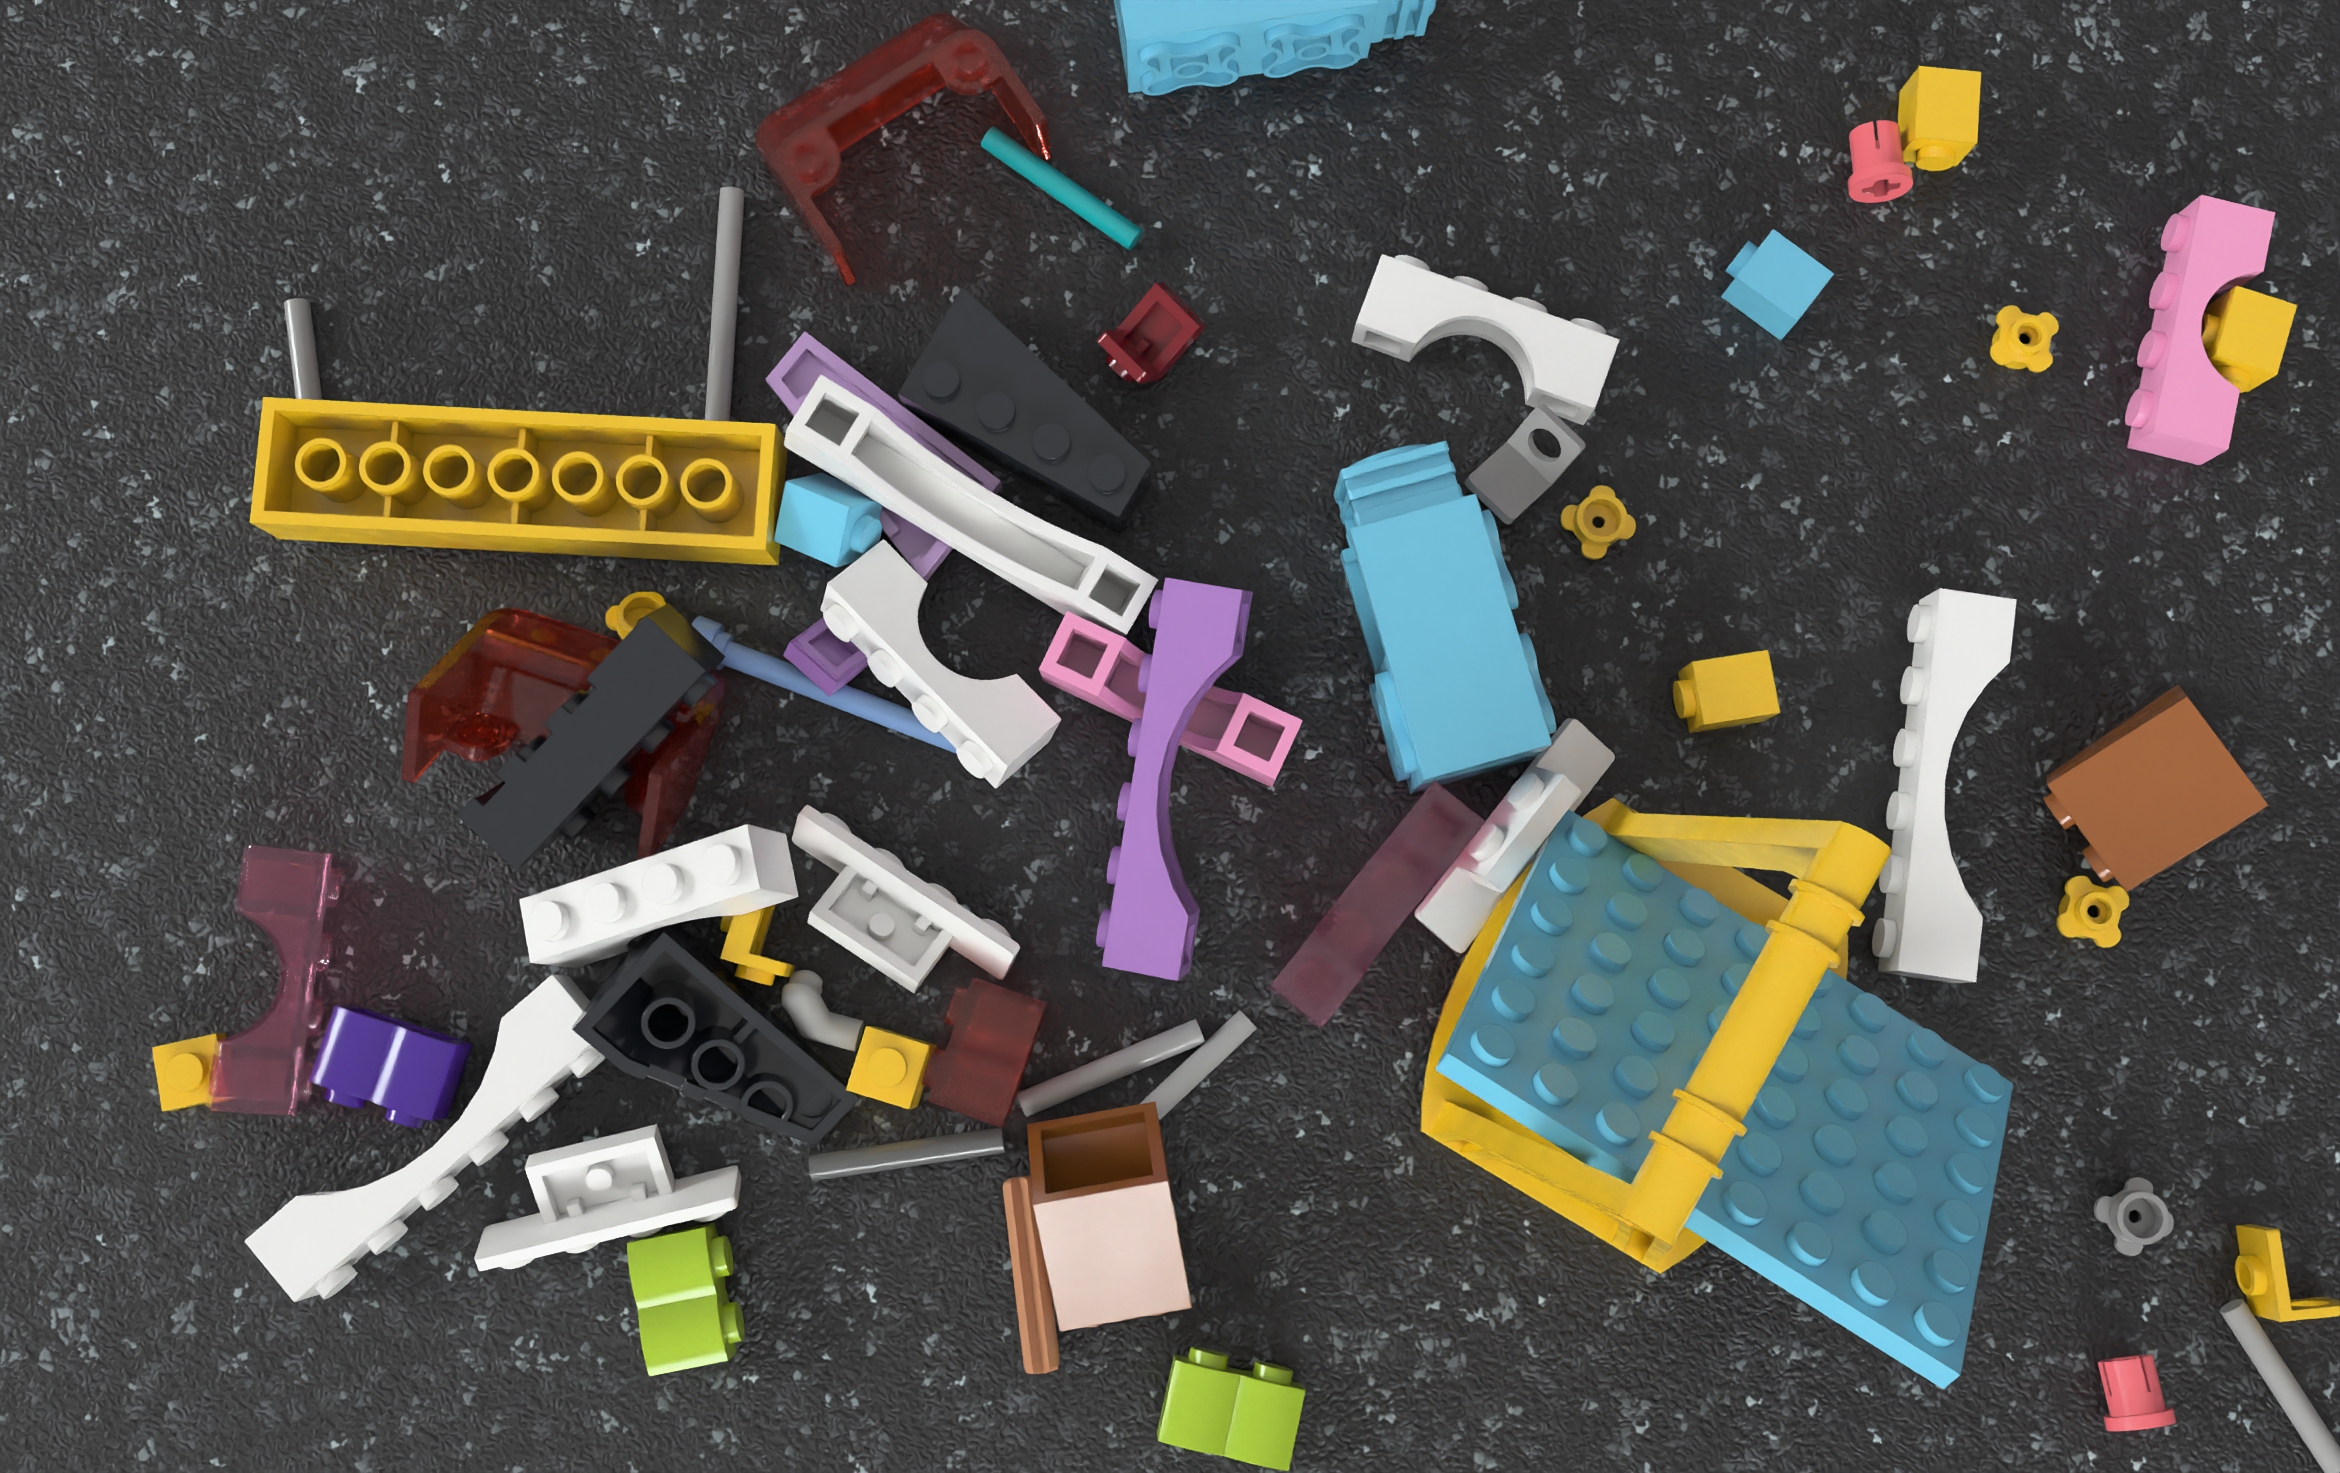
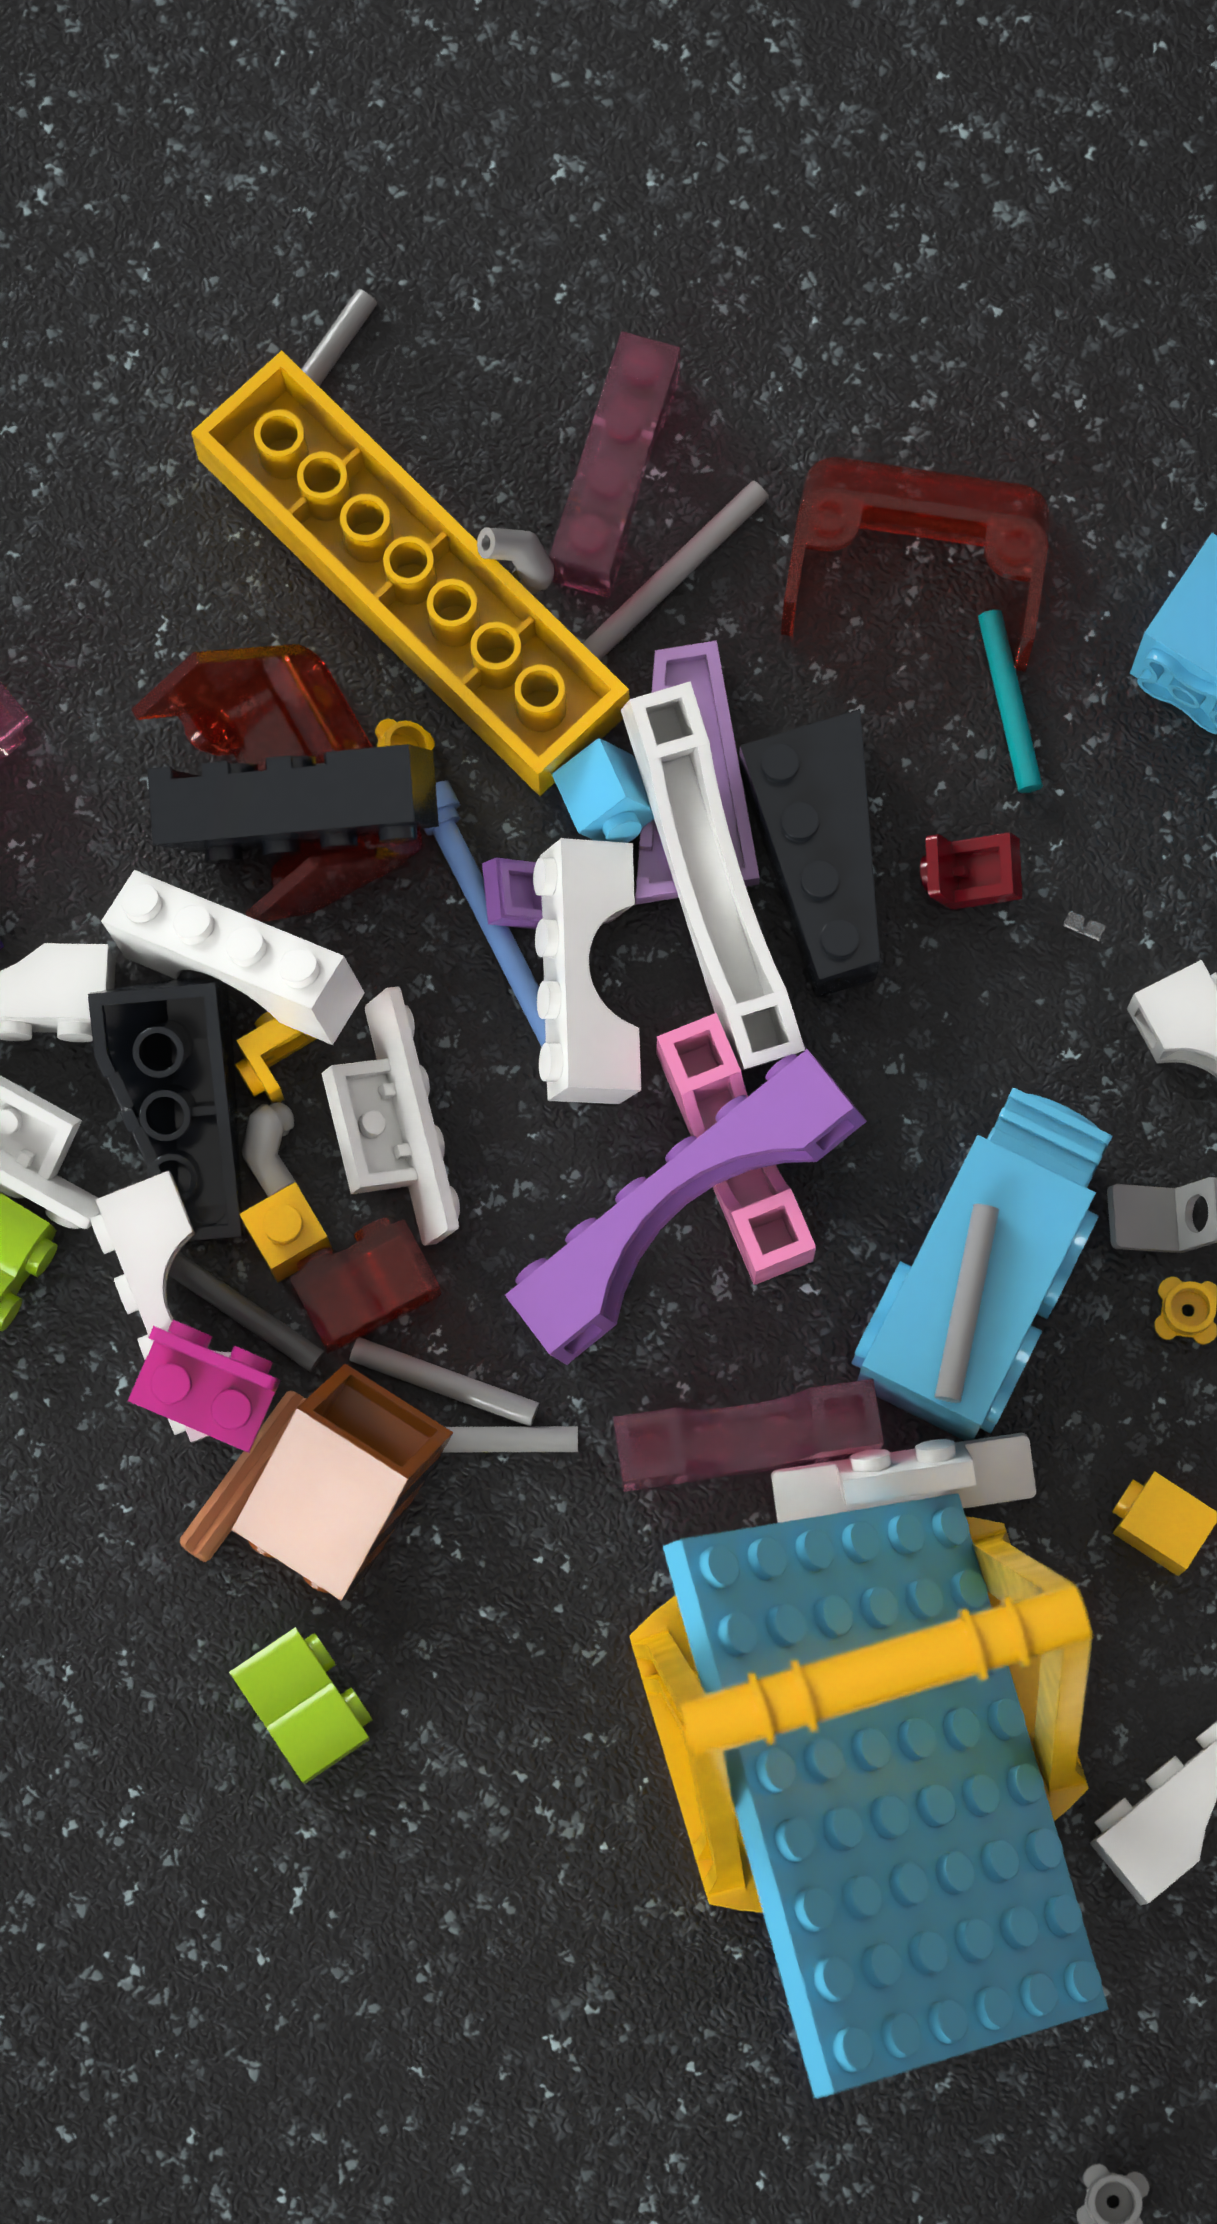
camera: 45 degrees right, 5 degrees down
(595, 388) = (525, 552): none -> light grey arm
(604, 264) = (613, 464): none -> clear pink arch
(938, 1238) = (147, 1231): none -> white arch
(942, 1247) = (205, 1388): none -> dark pink bracket
(1258, 309) = (1093, 928): none -> clear piece
(1460, 662) = (966, 1303): none -> light grey bar

